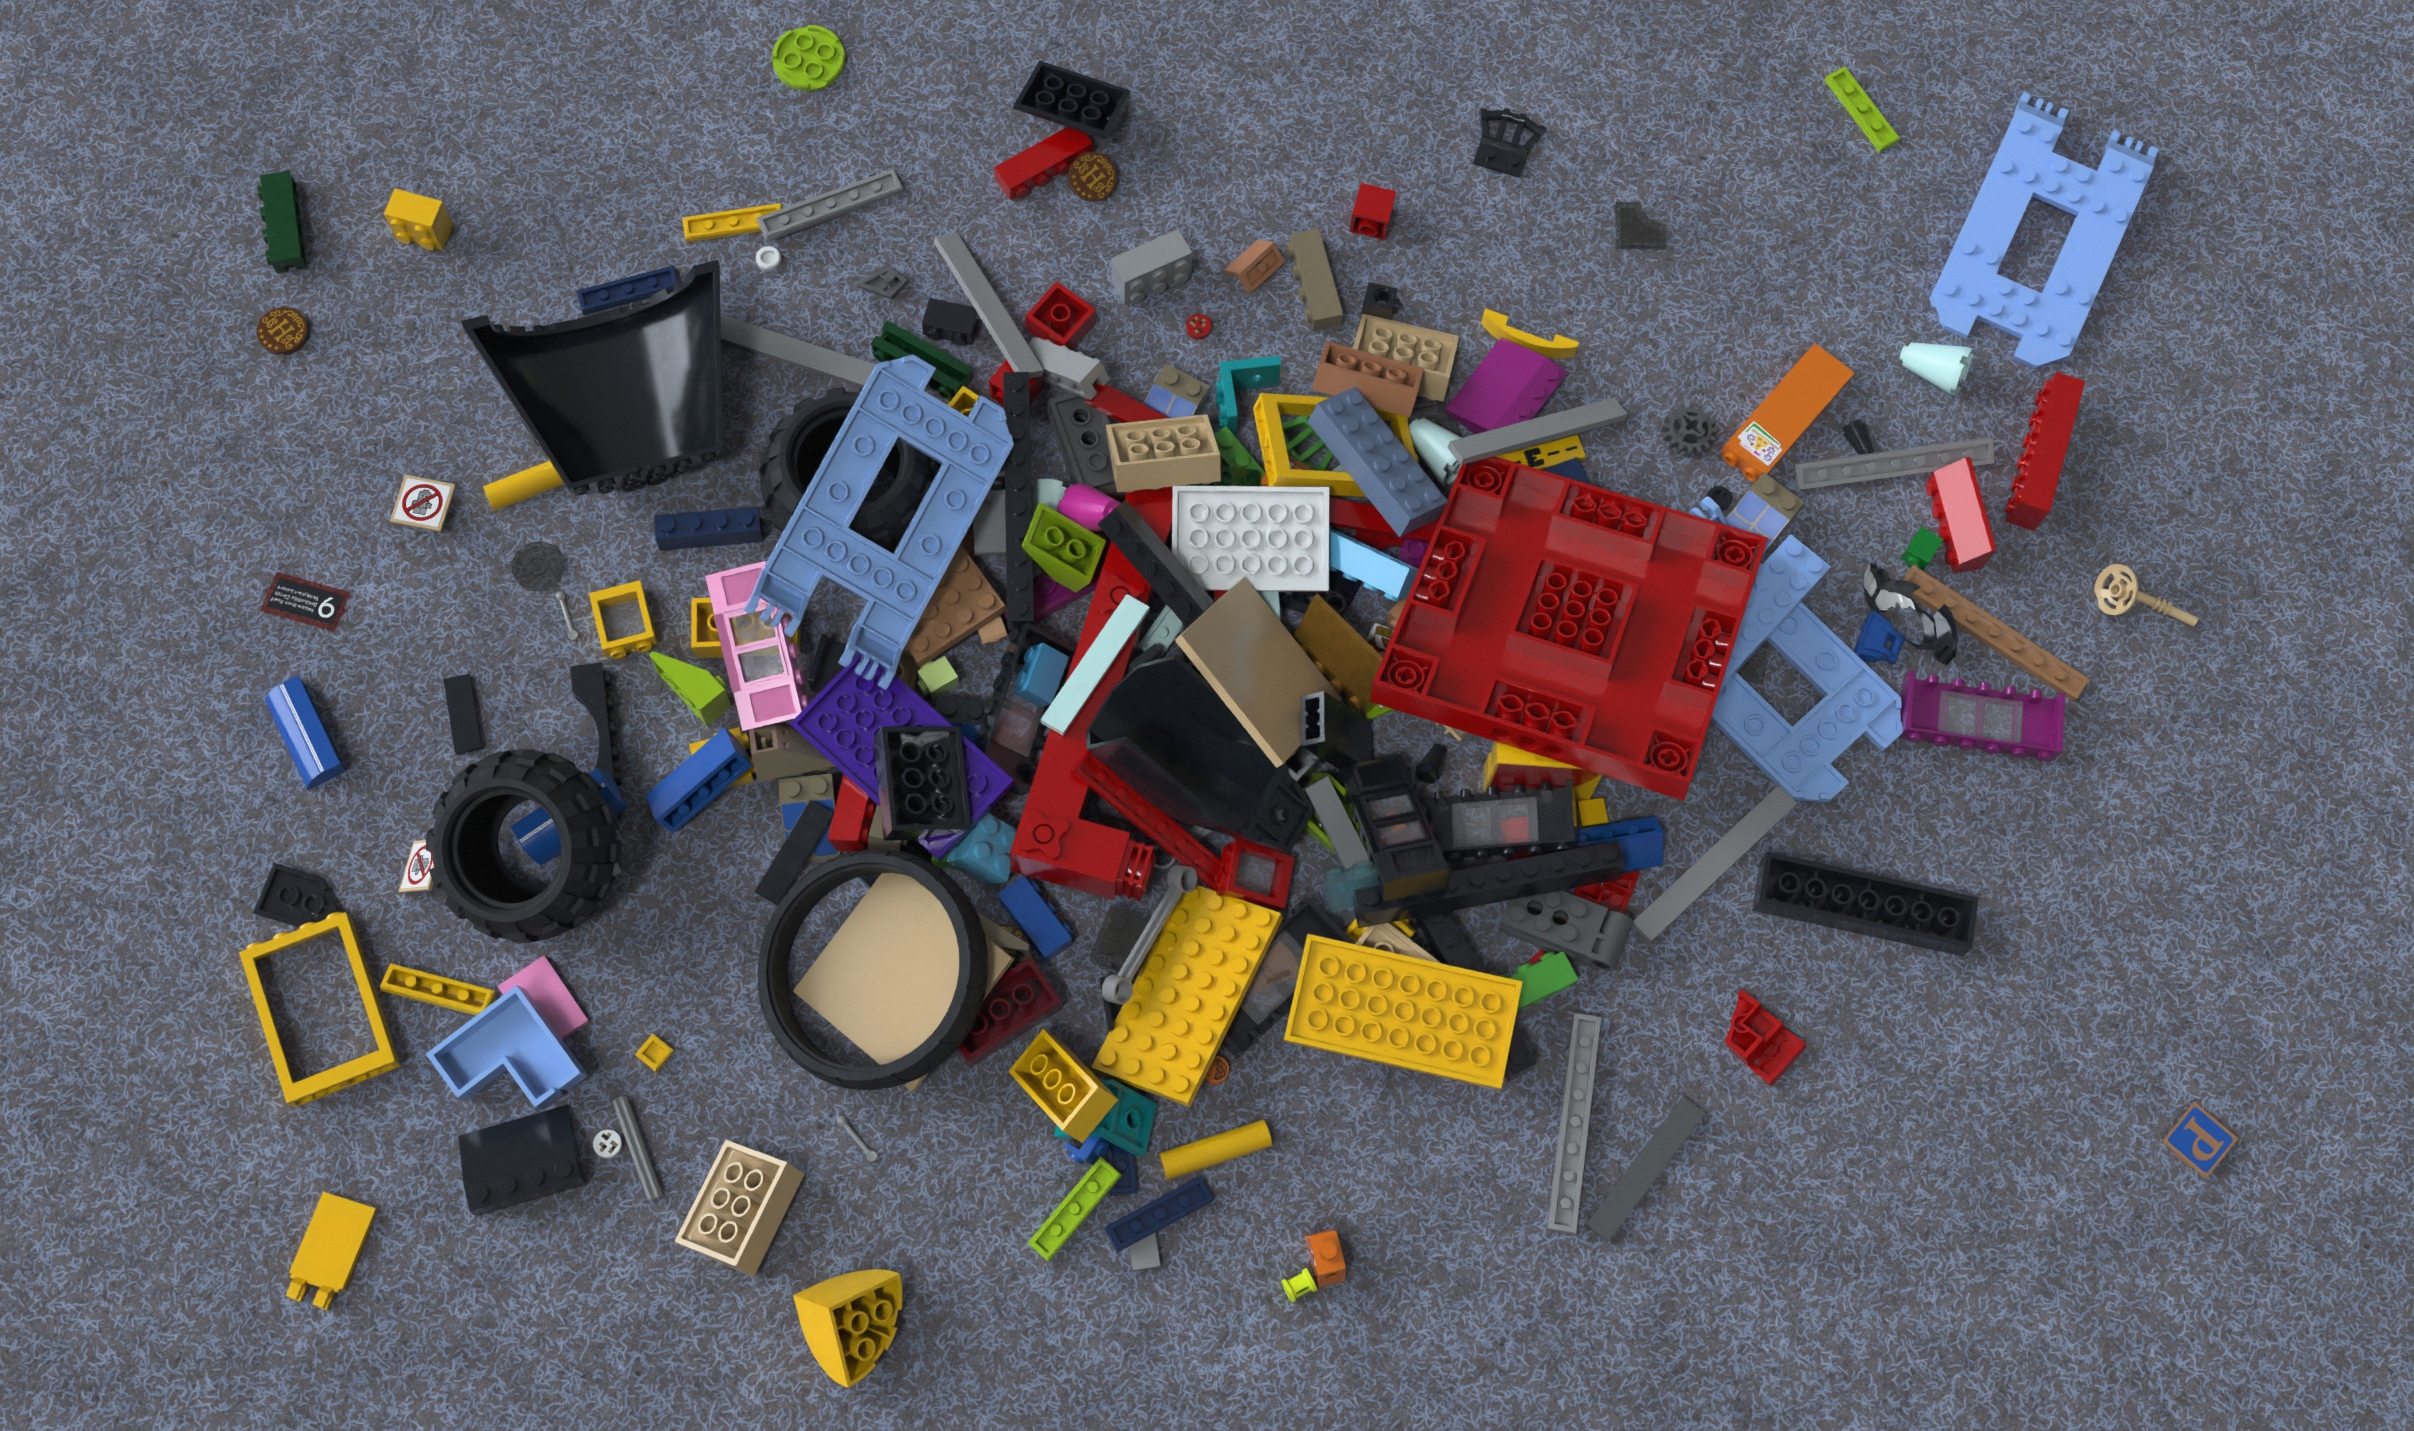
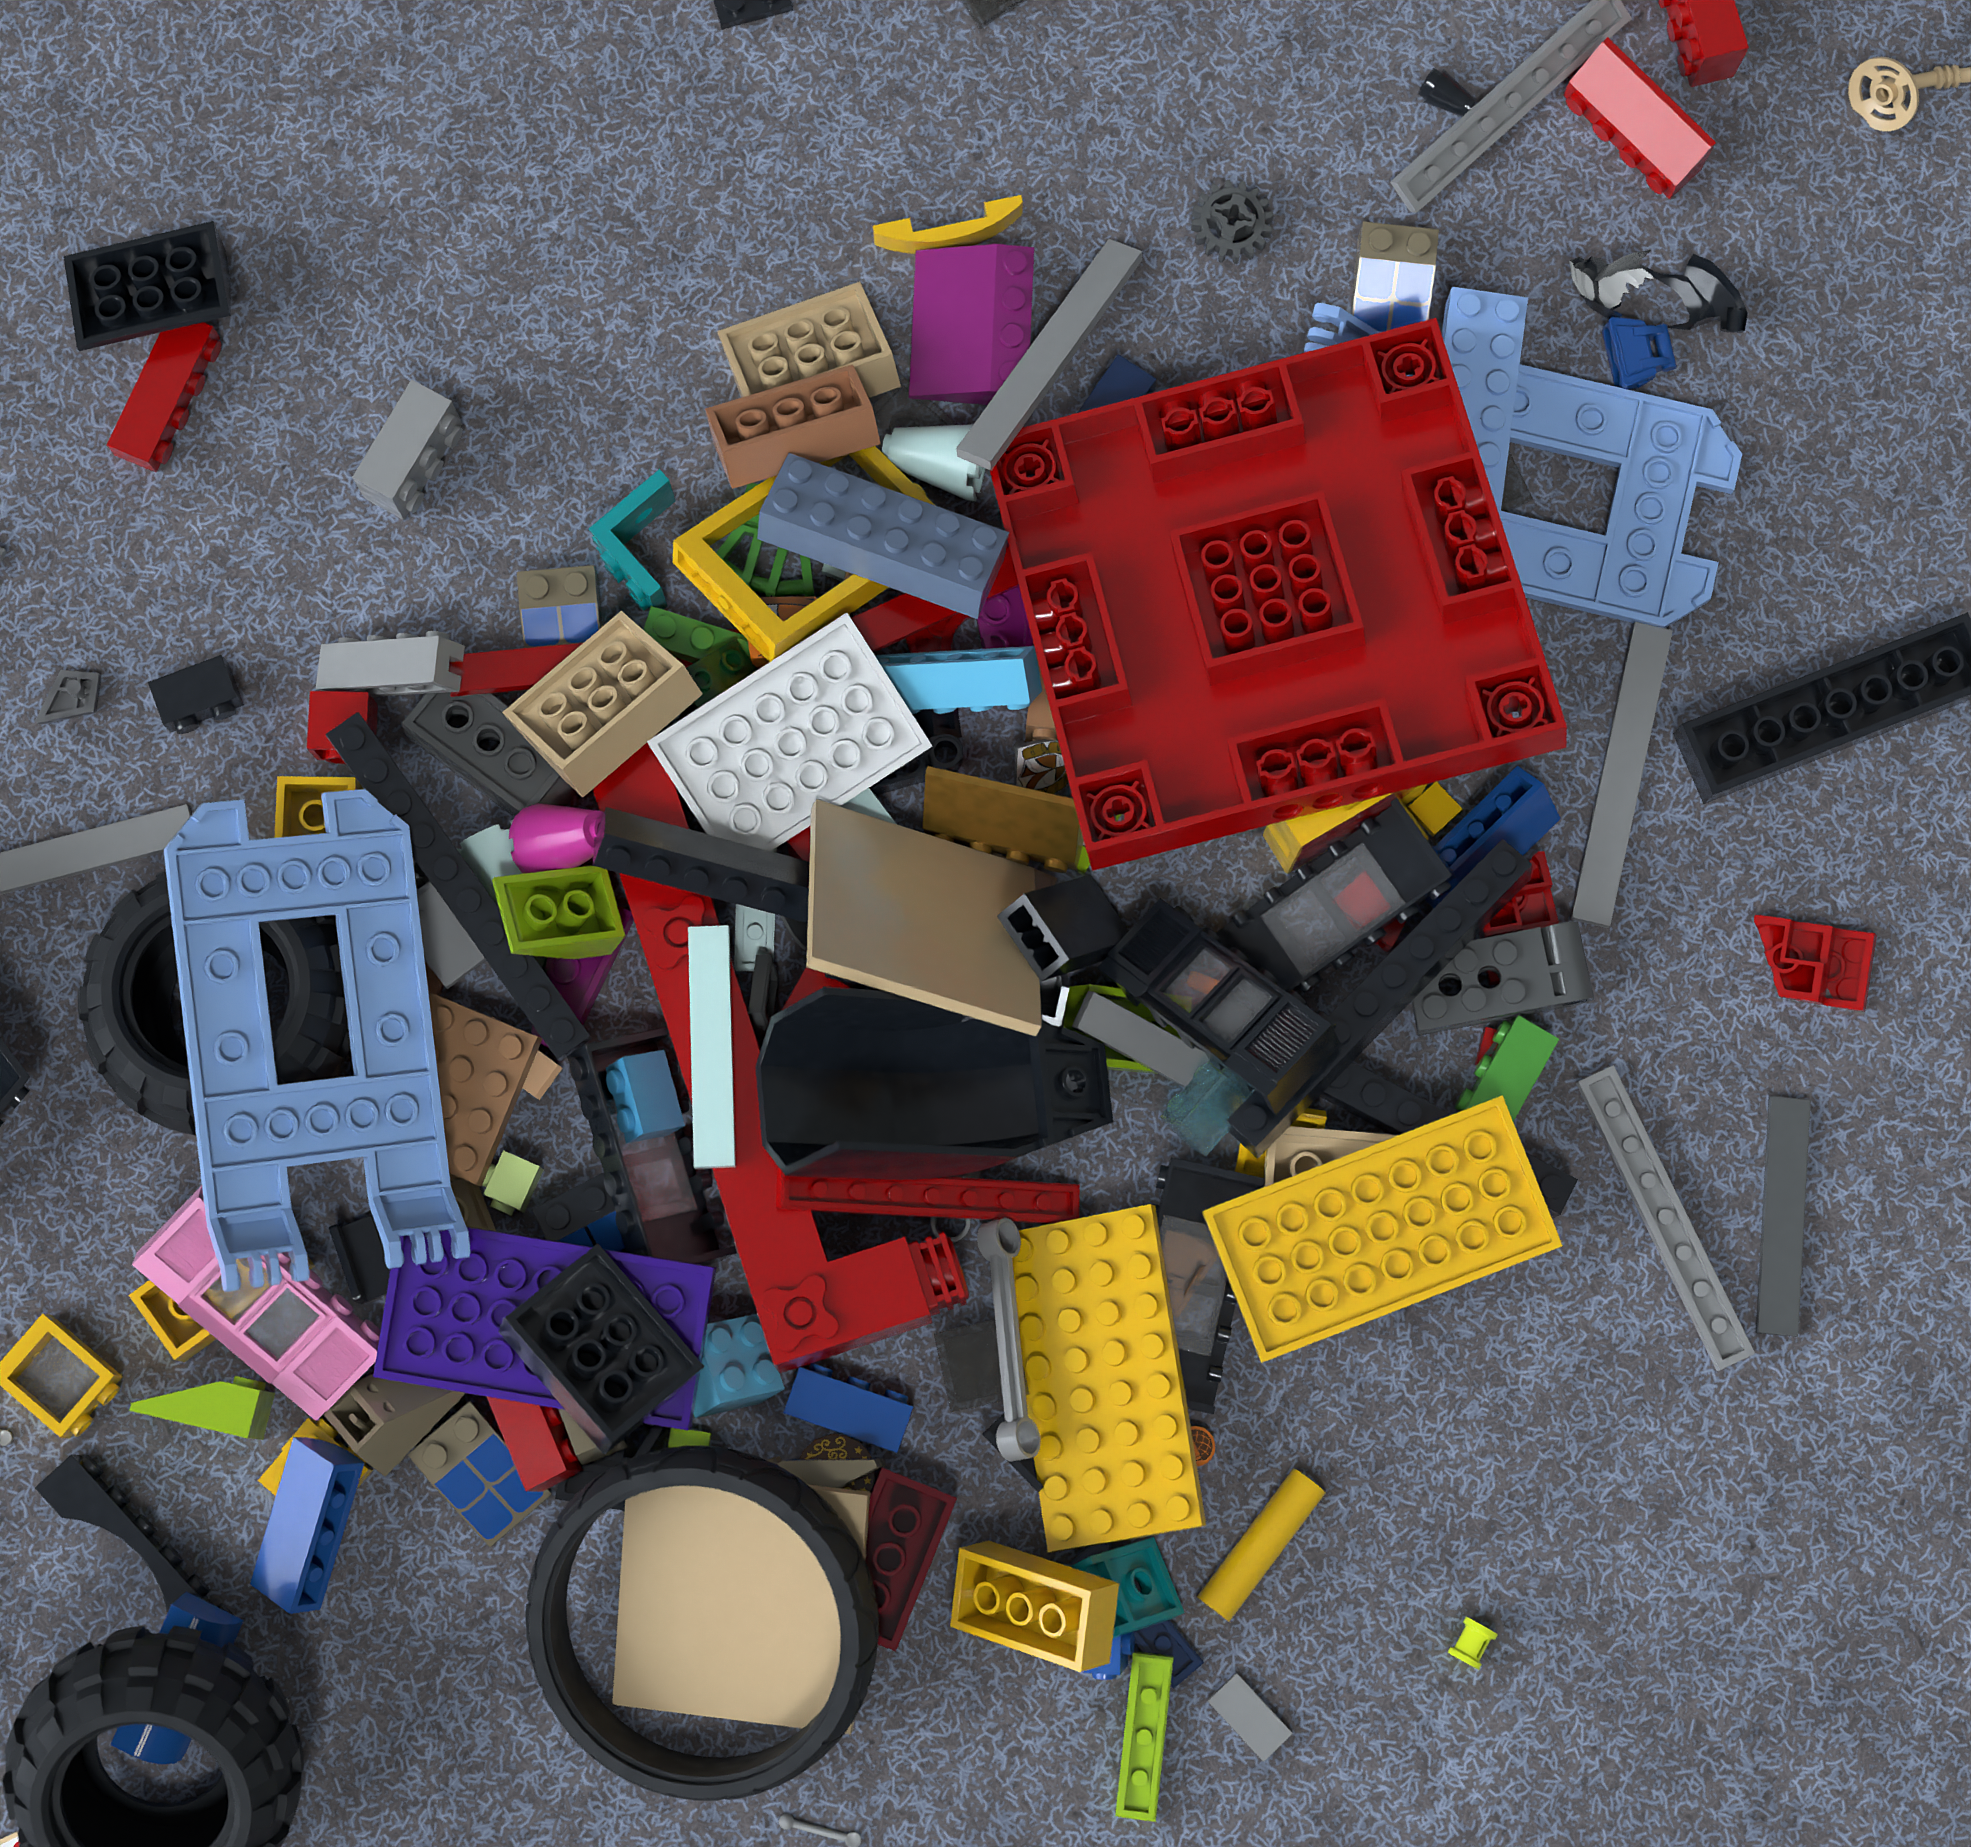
camera: 30 degrees left, 10 degrees up
(708, 528) = (80, 1183): dark blue brick -> none
(793, 852) = (492, 1532): black tile -> none
(949, 371) = (196, 772): dark green brick -> none
(988, 305) = (233, 643): light grey tile -> none
(1061, 317) = (337, 597): red brick -> none
(1092, 176) = (242, 372): reddish brown tile -> none
(1158, 1214) = (1249, 1673): dark blue tile -> none
(1198, 326) = (520, 488): red tile -> none
(1254, 875) = (1083, 1174): red window -> none
(1256, 264) = (536, 353): nougat panel -> none
(1315, 279) = (627, 325): dark tan brick -> none
(1326, 1257) = (1480, 1585): orange torso -> none
(1372, 211) = (640, 183): red head -> none
(1378, 292) = (718, 291): black brick -> none
(1431, 764) = (1200, 878): black cone -> none
(1548, 453) = (1079, 375): yellow tile -> none
(1720, 496) = (1325, 288): black tile -> none
(1786, 413) = (1338, 120): orange brick -> none
(1921, 549) = (1615, 195): green brick -> none
(1982, 718) = (1824, 369): magenta window -> none
(1998, 635) = (1773, 248): medium nougat plate -> none

